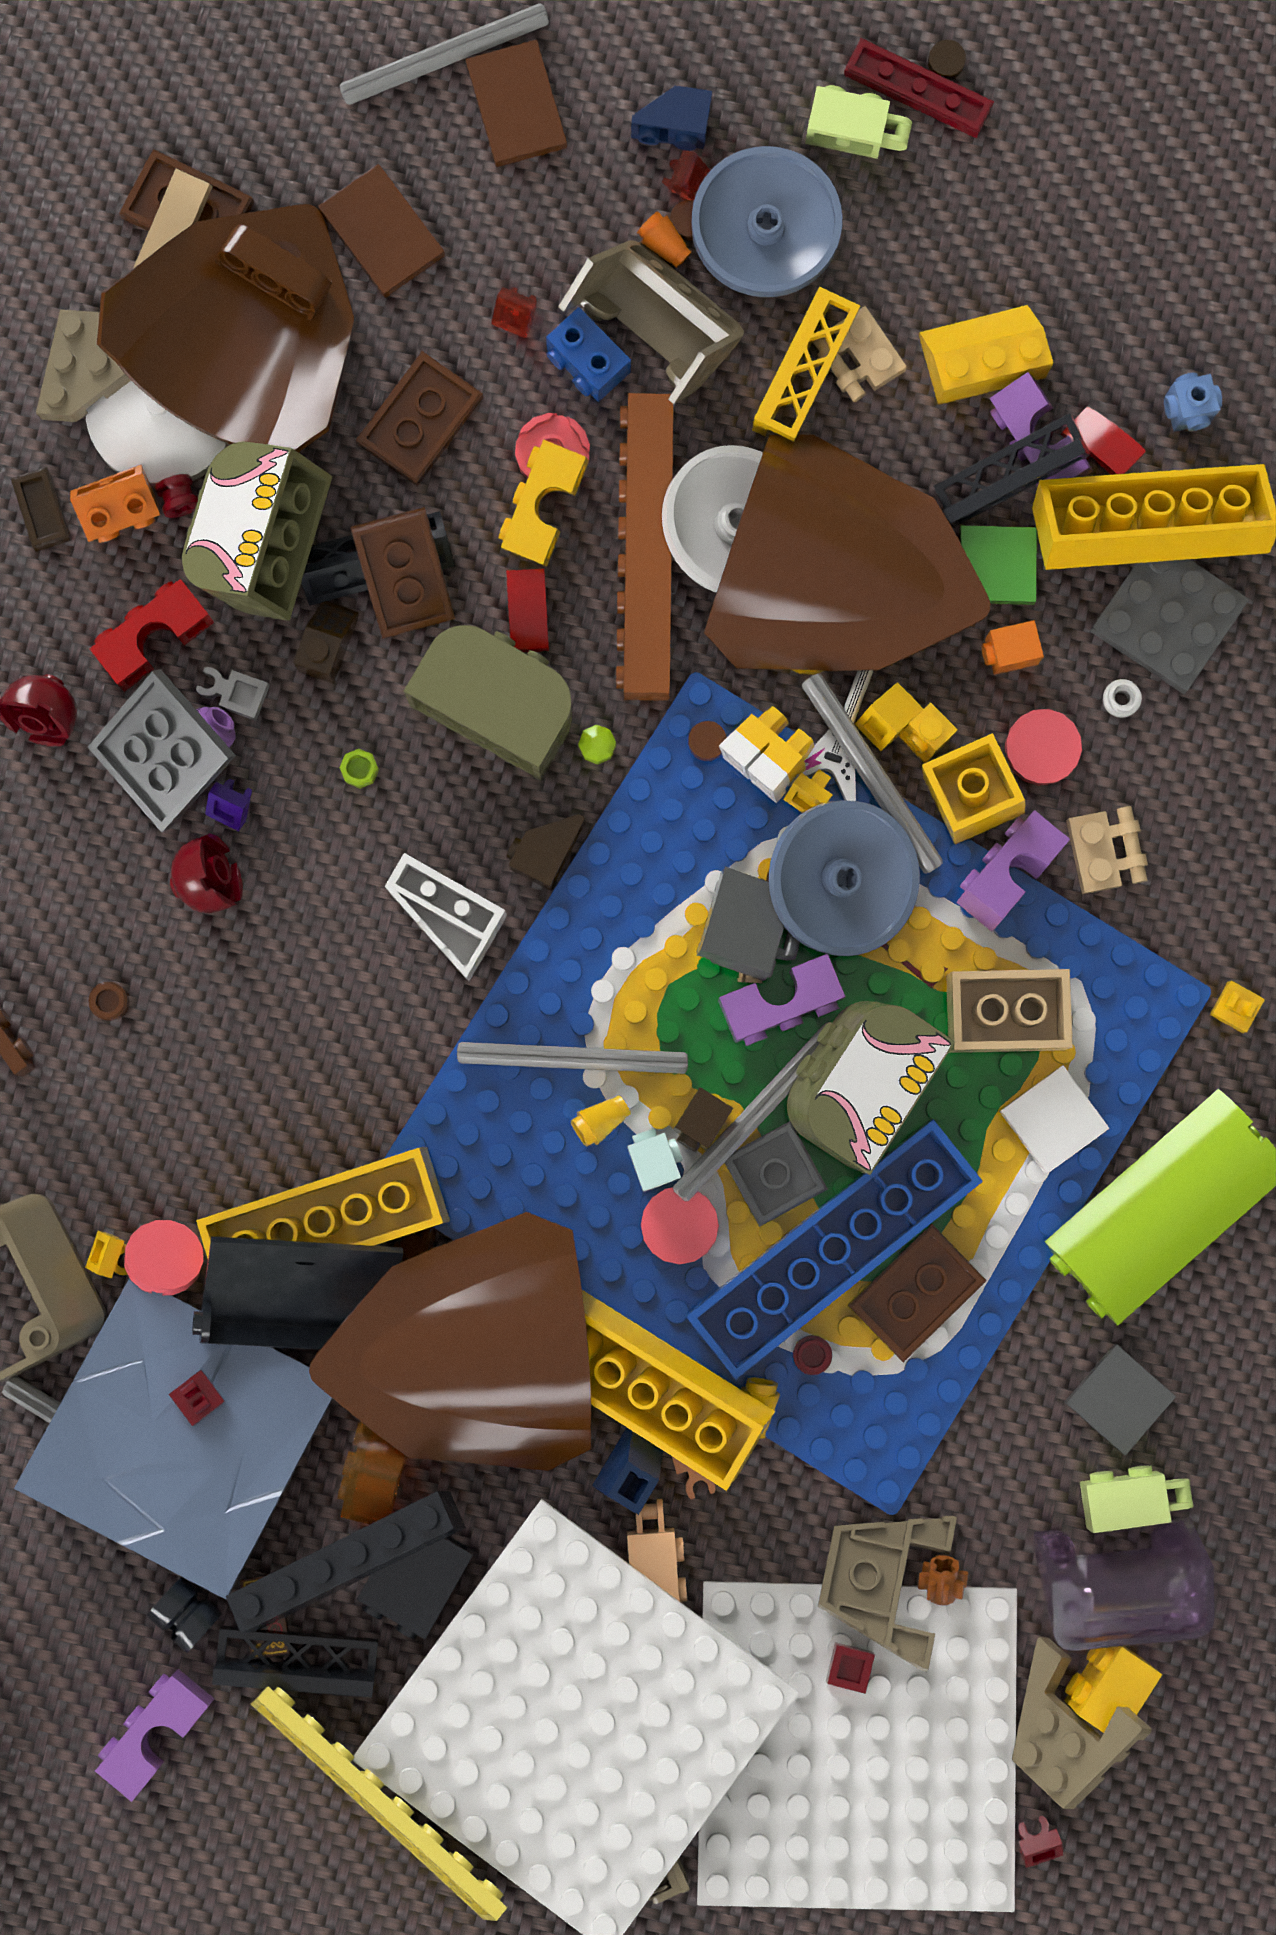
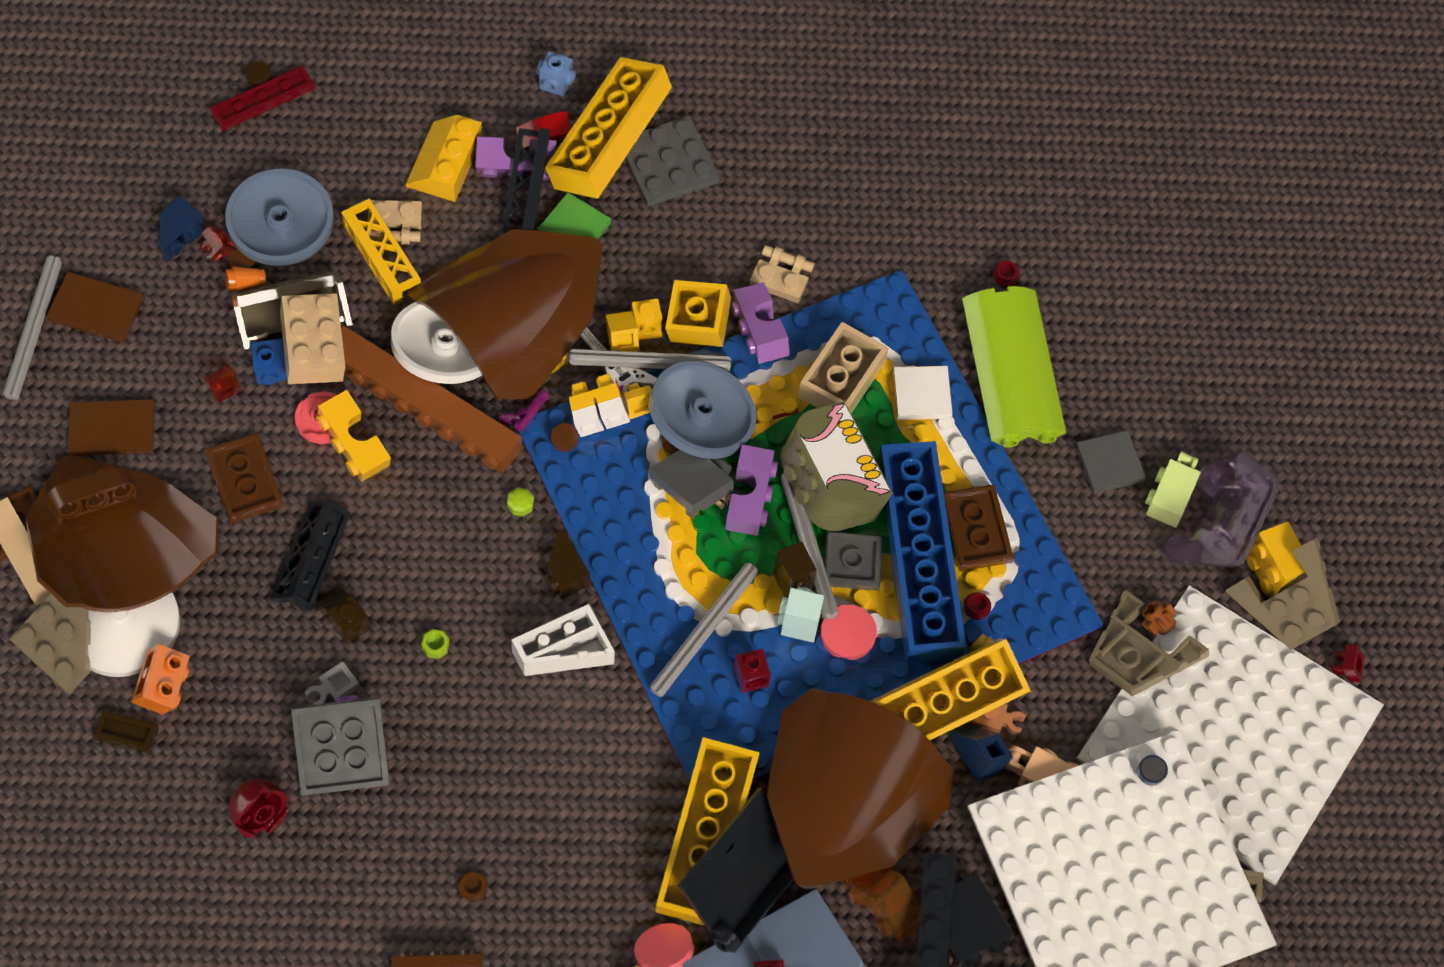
camera: 60 degrees left, 20 degrees down
(123, 648) = (258, 736): red arch -> none
(177, 495) = (184, 641): dark red wheel -> none
(204, 876) = (437, 774): dark red cylinder -> none
(228, 805) = (402, 733): dark purple tile -> none
(255, 527) = (244, 599): olive brick -> none
(403, 572) = (335, 539): reddish brown tile -> none
(494, 696) = (453, 533): olive brick -> none
(527, 609) = (410, 488): red slope -> none
(551, 1146) = (752, 670): none -> dark red brick
(600, 1120) = (753, 634): yellow cone -> none
(621, 372) = (312, 338): none -> tan brick
(709, 675) = (525, 415): none -> magenta hose
(720, 1692) = (1152, 770): none -> flat silver tile
(850, 1667) = (1181, 701): dark red tile -> none
(855, 123) = (257, 140): yellowish green brick -> none
(1012, 647) = (629, 246): orange brick -> none
(1043, 747) = (698, 264): coral tile -> none
(1132, 693) = (699, 206): white plate -> none
(1237, 1007) = (920, 264): yellow tile -> none

